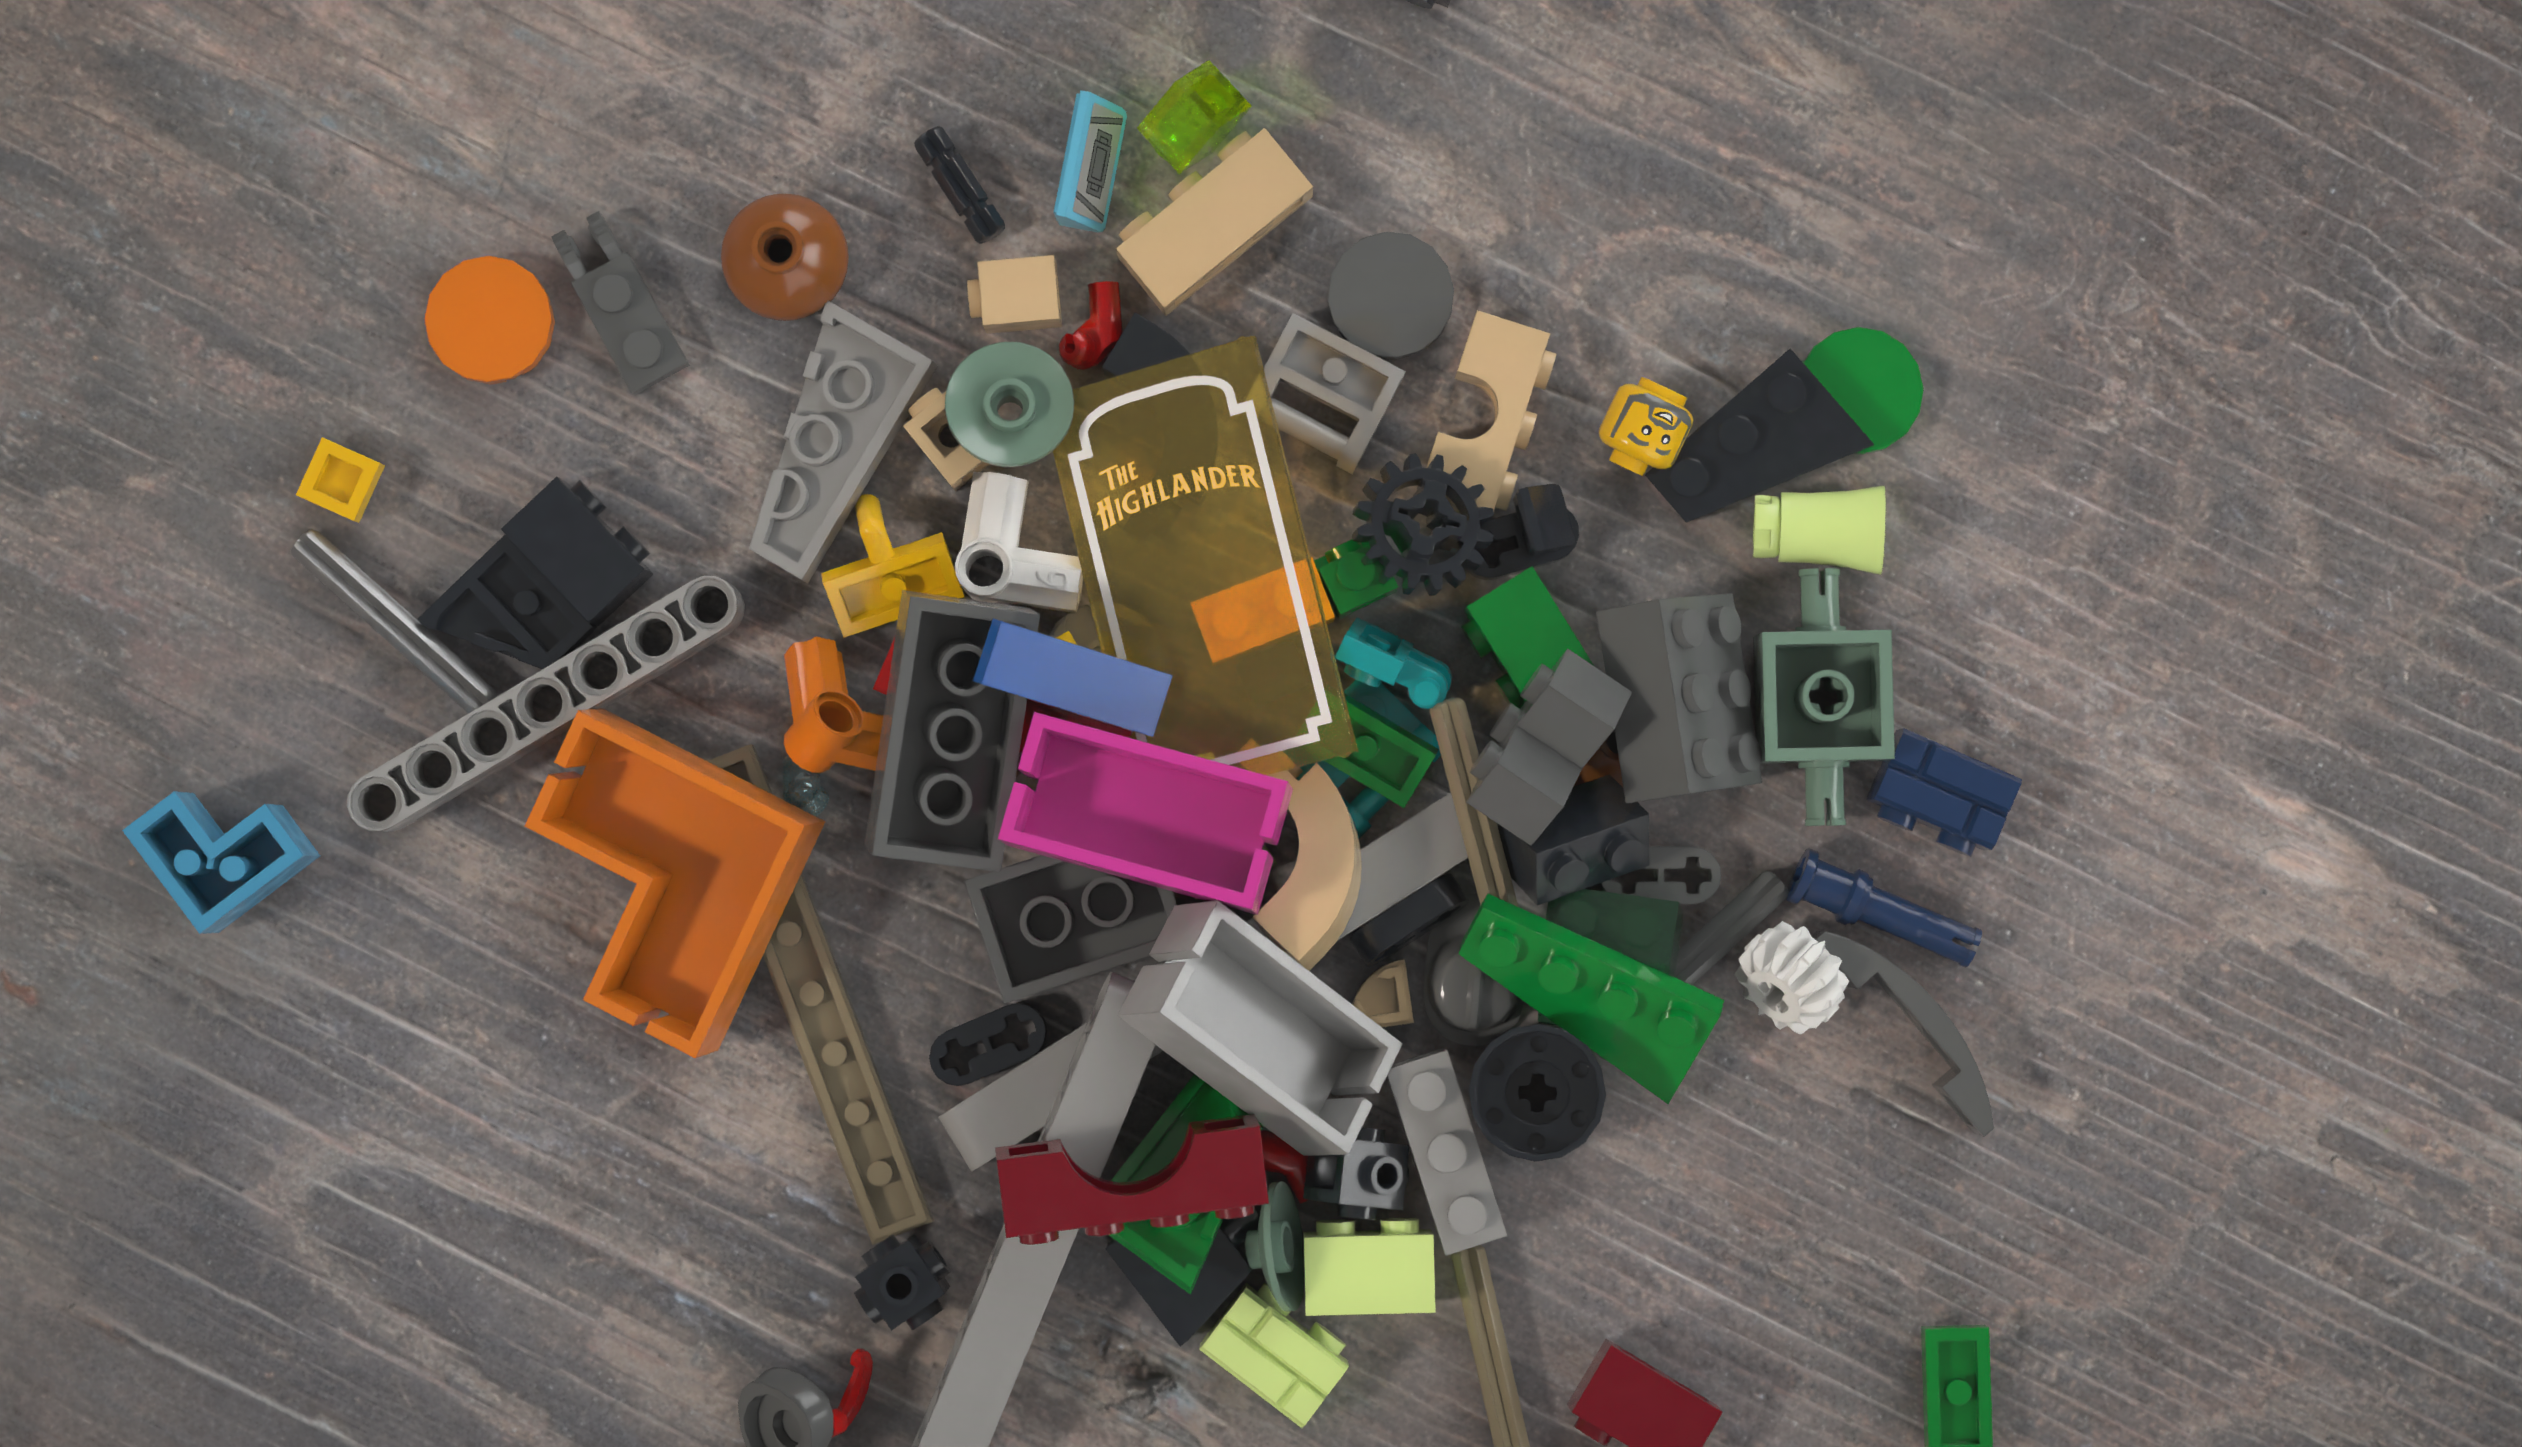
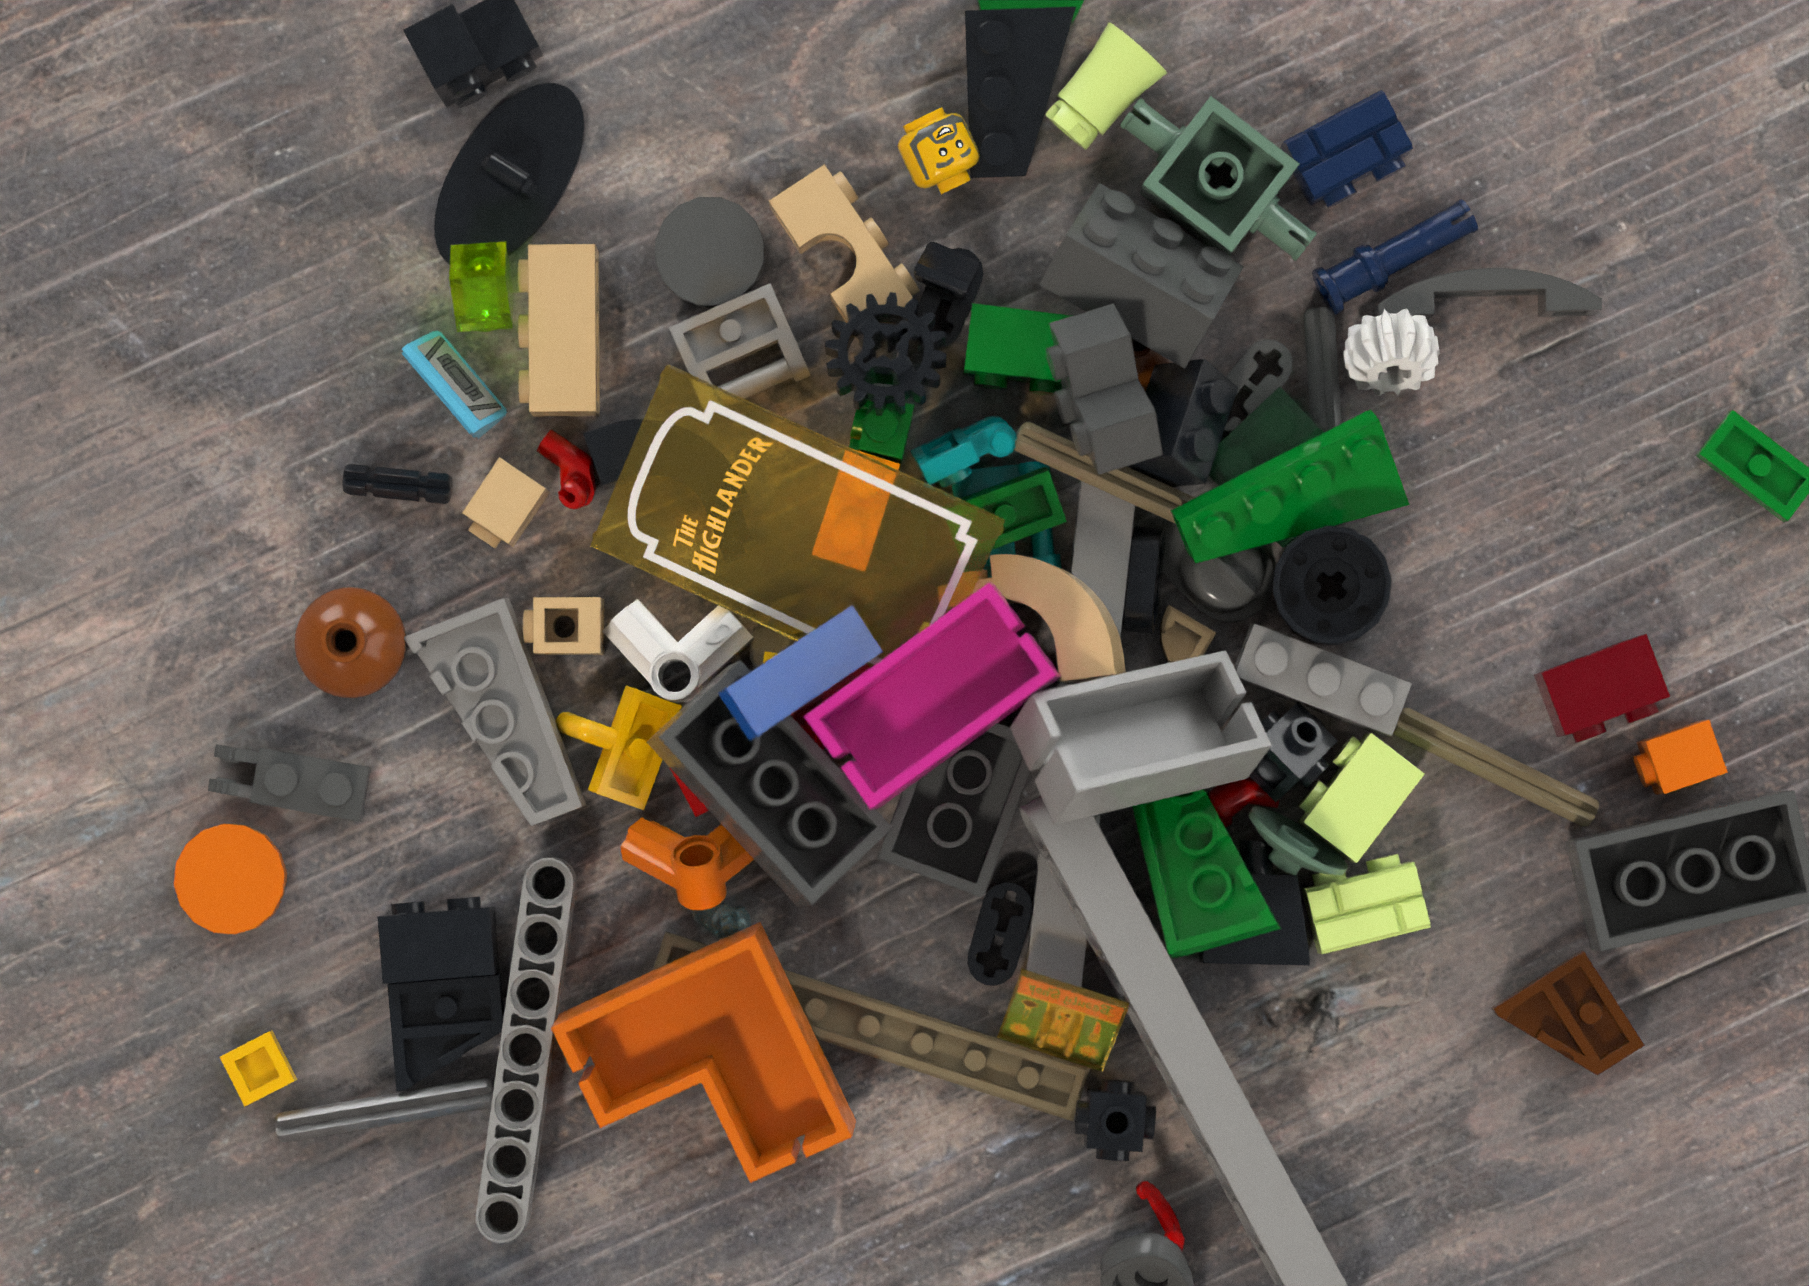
camera: 50 degrees left, 0 degrees up
(952, 1162) = (1062, 1020): none -> clear yellow piece
(1004, 375) = (563, 546): sand green dish -> none
(1213, 1171) = (1209, 845): dark red arch -> none
(1321, 62) = (511, 170): none -> black shield

